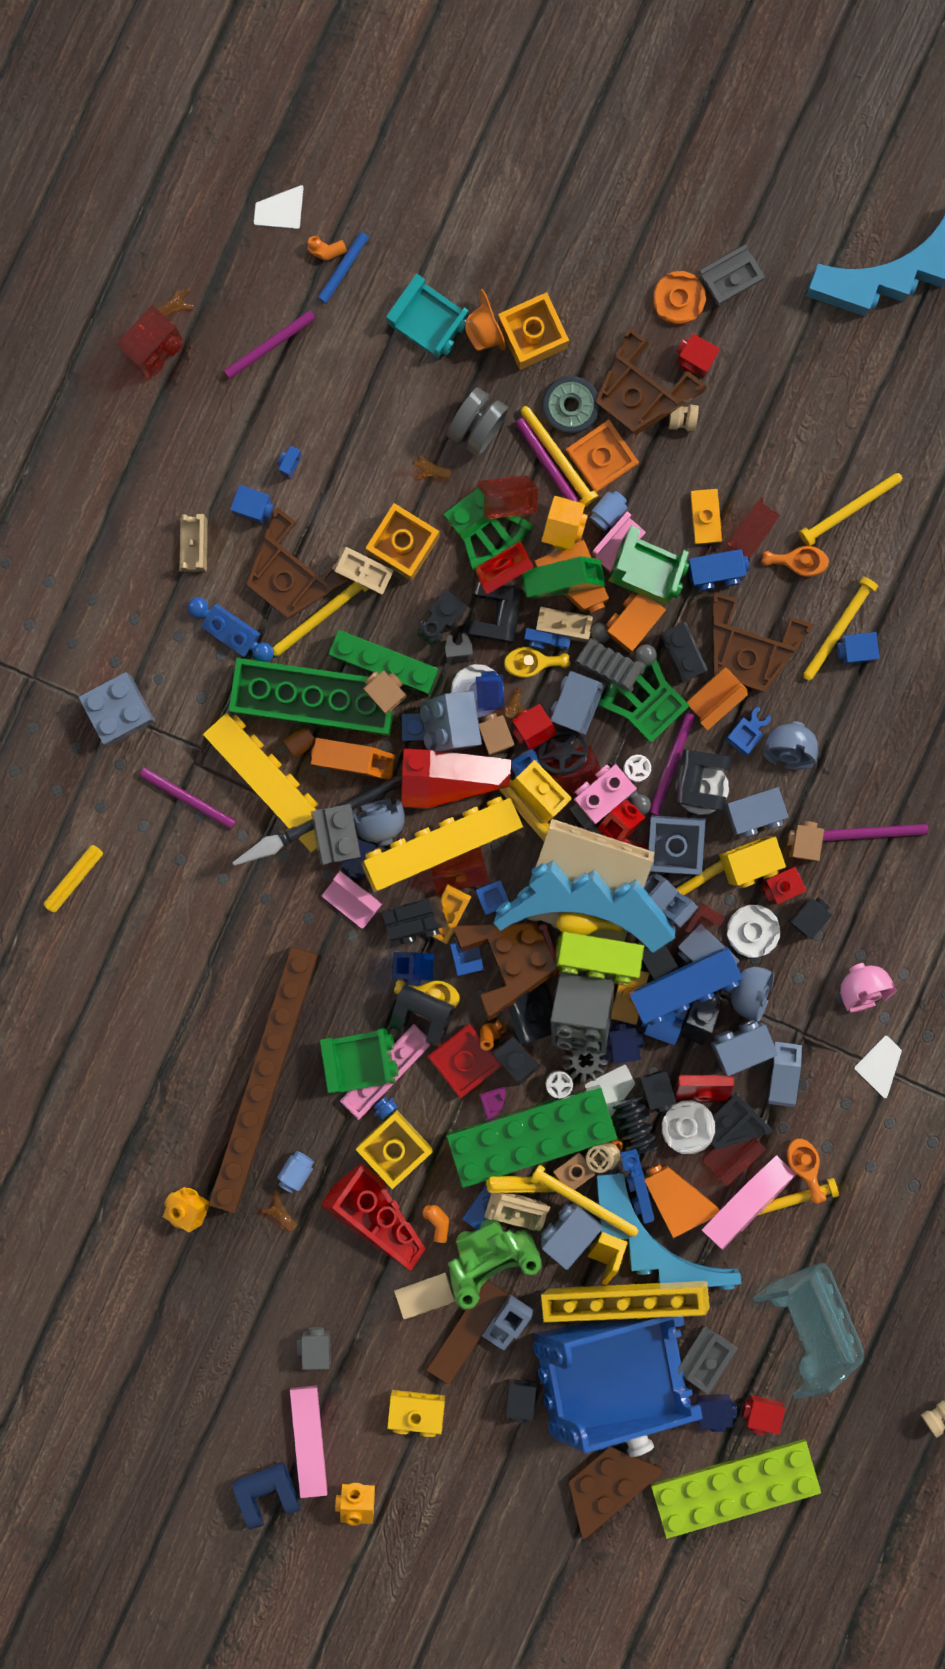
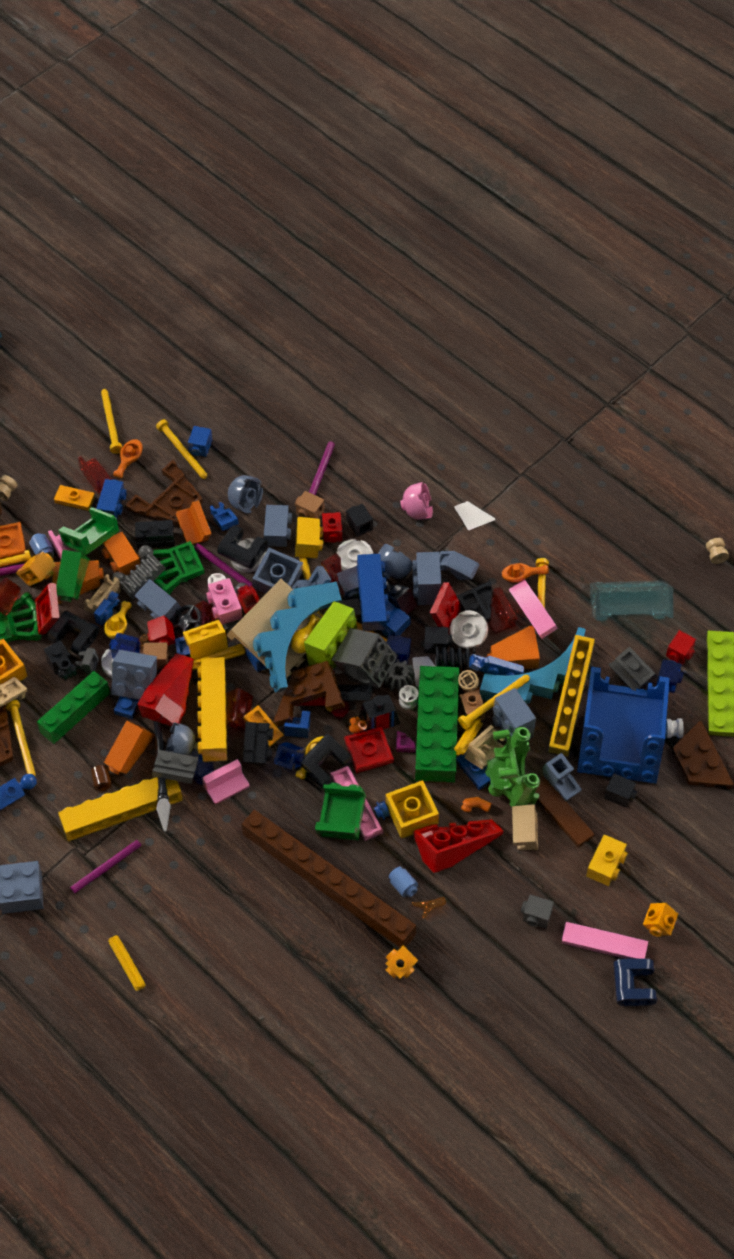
camera: 70 degrees left, 30 degrees down
(306, 697) = (74, 756): green brick -> none
(385, 690) = (93, 700): medium nougat brick -> none
(492, 896) = (263, 695): blue plate -> none
(608, 1251) = (538, 698): yellow panel -> none

